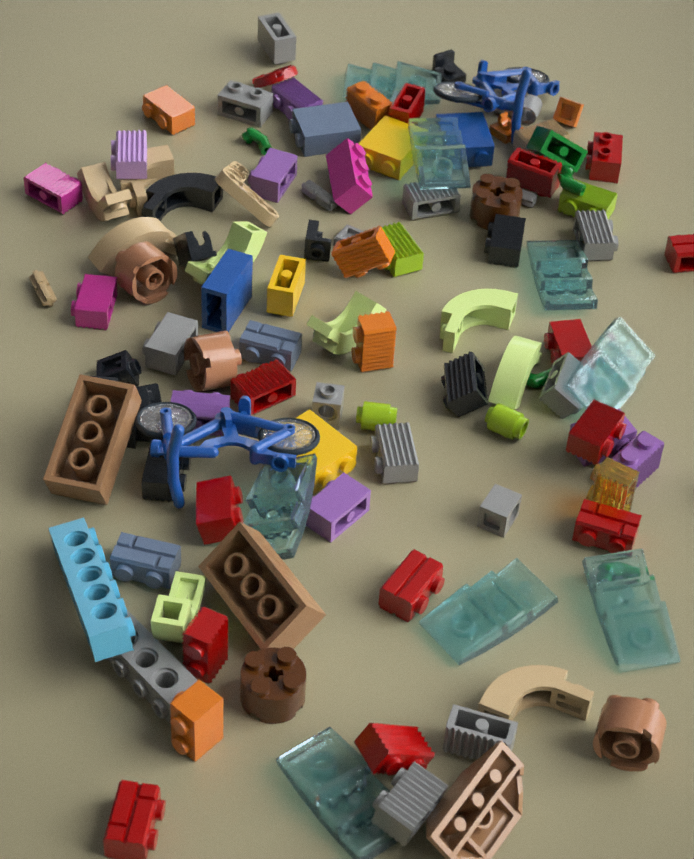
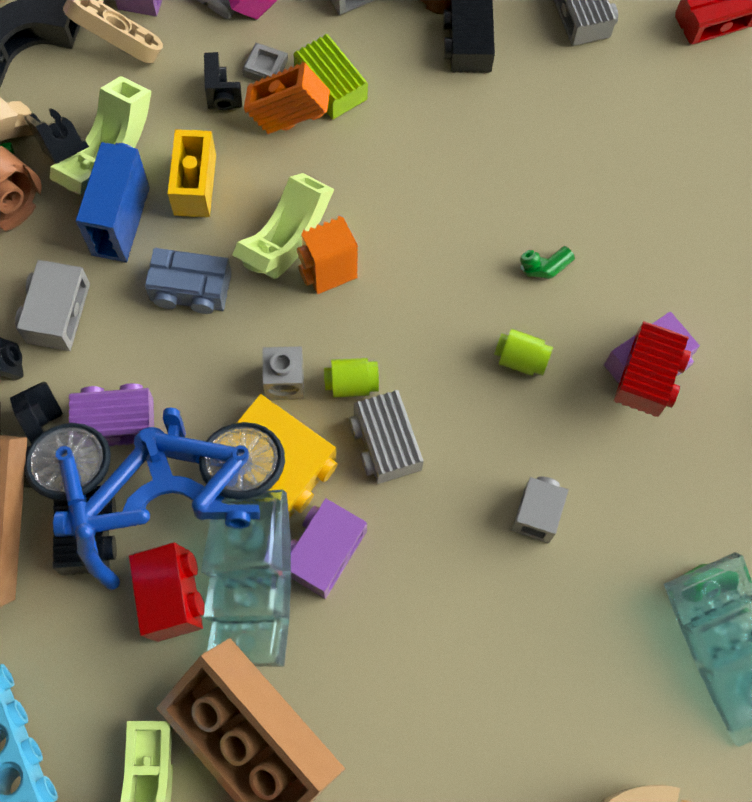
camera: 10 degrees left, 25 degrees up
(145, 560) = (82, 699): sand blue brick -> none
(211, 360) = (114, 330): nougat brick -> none
(264, 385) = (190, 355): red brick -> none
(411, 586) = (447, 667): red brick -> none
(464, 384) = (459, 303): black brick -> none
(475, 308) = (452, 159): yellowish green arch -> none
(488, 611) = (553, 688): clear light blue slope -> none
(514, 371) = (523, 270): yellowish green arch -> none
(554, 391) = (591, 277): light grey brick -> none
(561, 275) = (552, 79): clear light blue slope -> none
(567, 337) = (584, 208): red brick -> none
(606, 527) = (684, 512): red brick -> none
(611, 367) = (645, 244): clear light blue slope -> none
(613, 484) = (685, 457): clear yellow brick -> none
(641, 454) = (702, 393): medium lavender brick -> none

